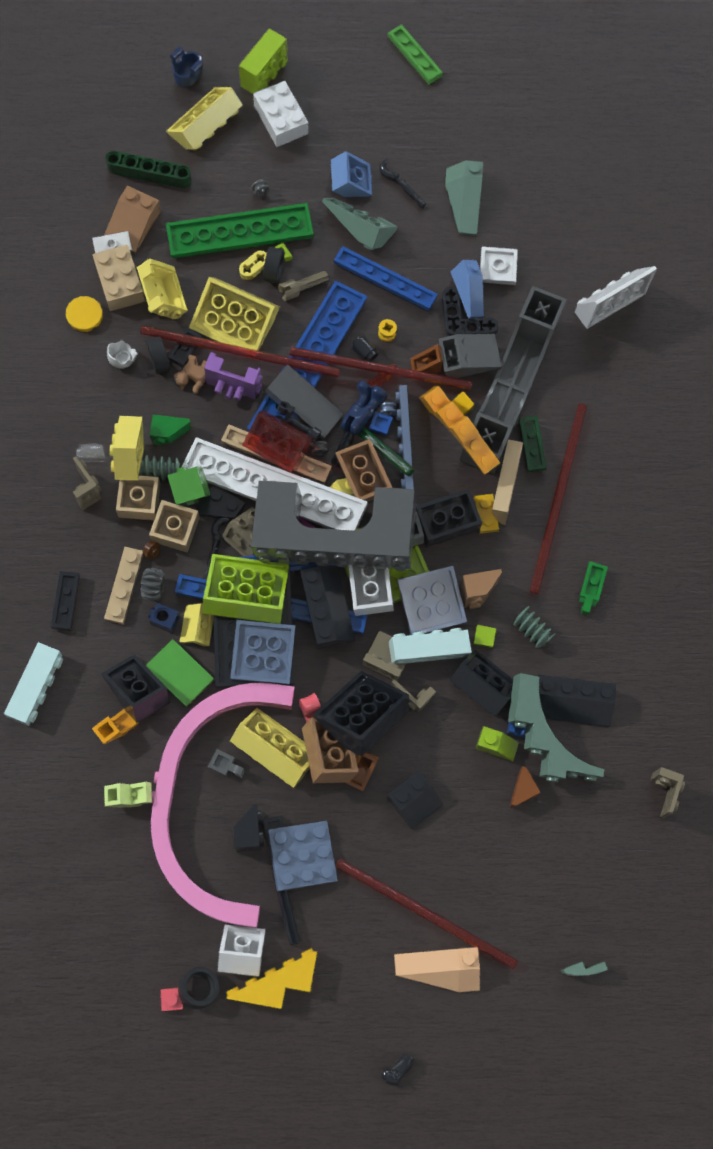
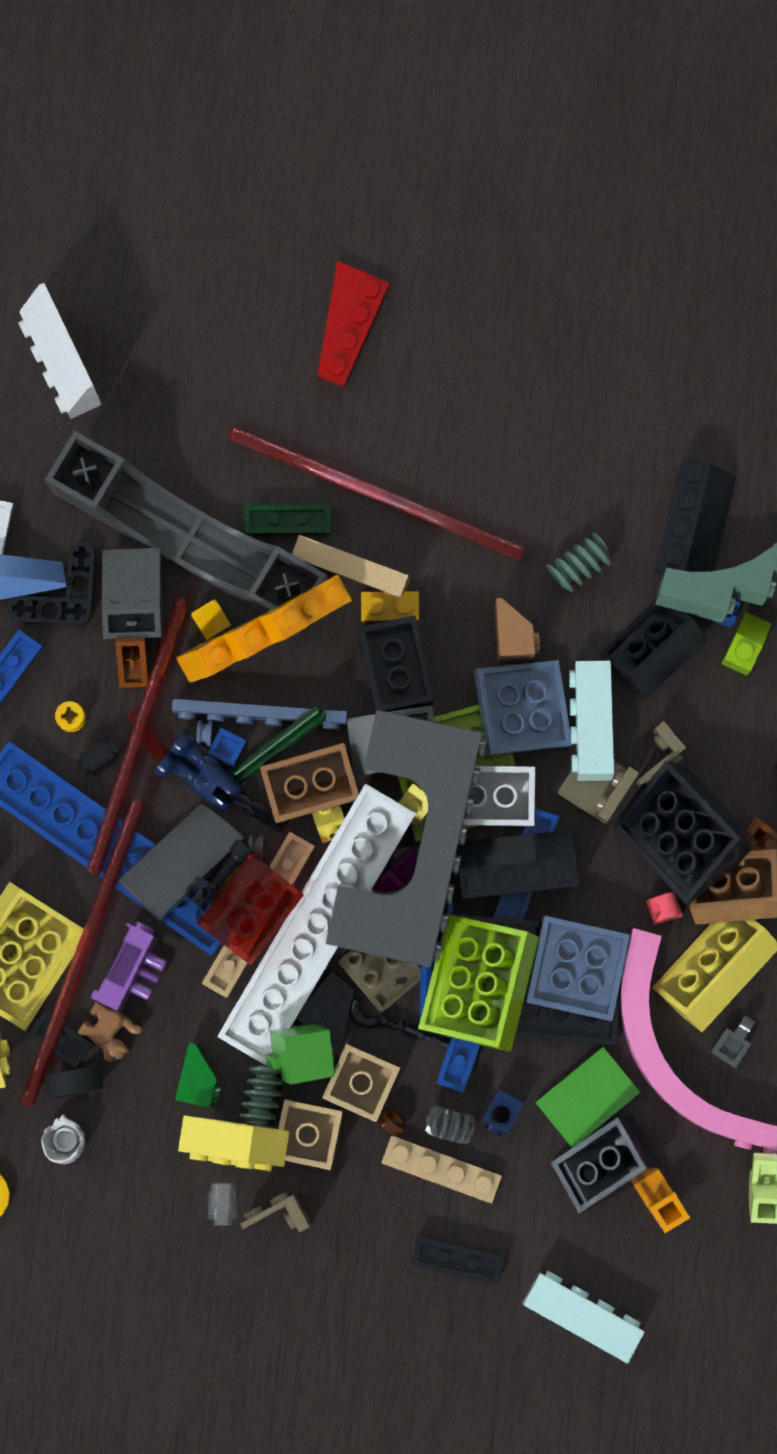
camera: 75 degrees left, 10 degrees up
(196, 626) = (520, 1068): light yellow panel -> none
(484, 636) = (581, 637): lime tile -> none
(592, 586) = (524, 466): green hinge -> none
(668, 468) = (350, 317): none -> red wing

